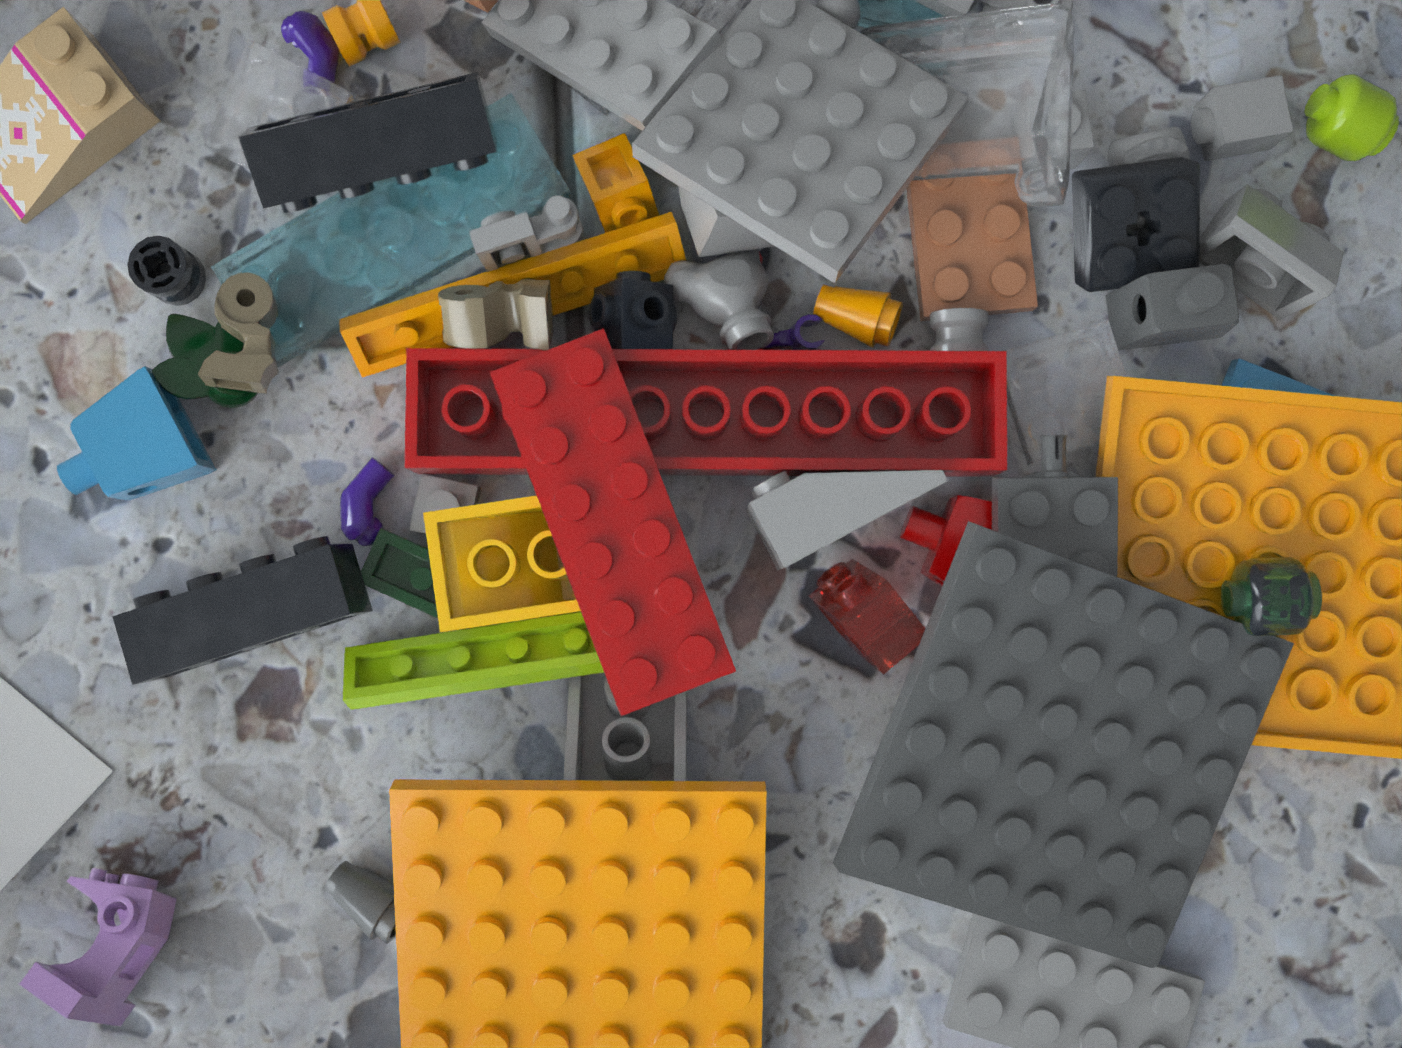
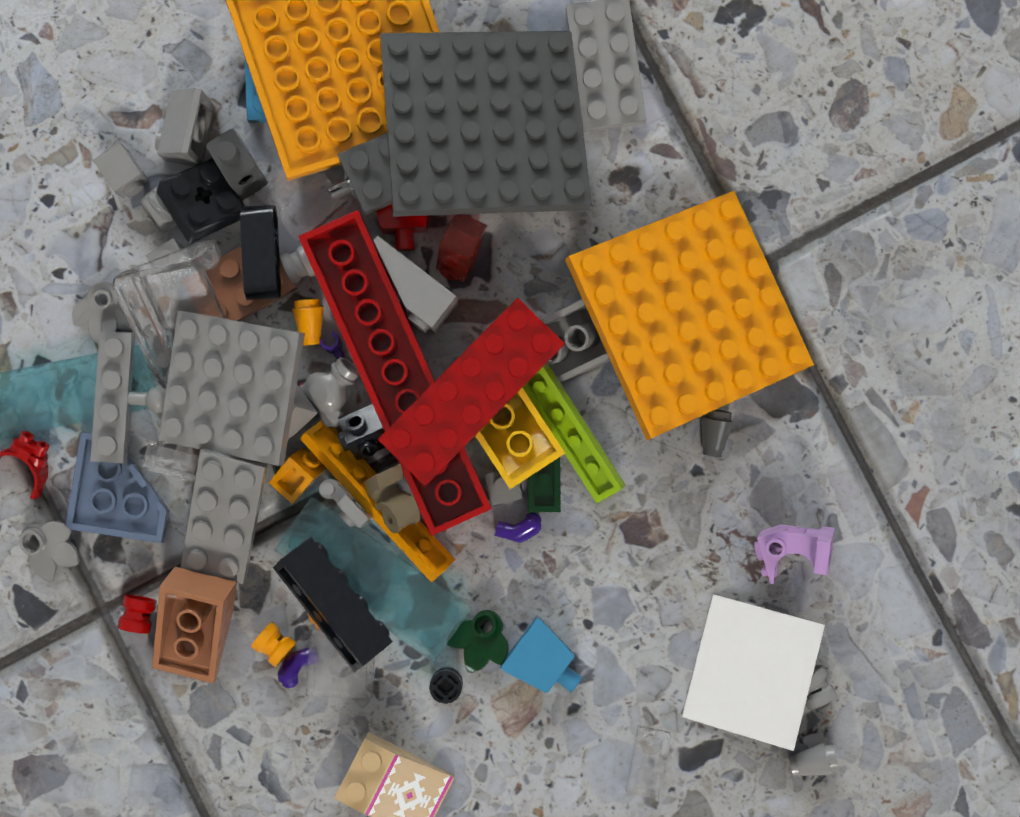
camera: 110 degrees left, 0 degrees up
(243, 611) = (602, 560): black brick -> none
(247, 312) = (451, 630): dark tan leg -> none
(1006, 279) = (260, 252): none -> black beam
(1272, 596) = (362, 54): clear green head -> none
(1351, 118) = (96, 116): lime head -> none

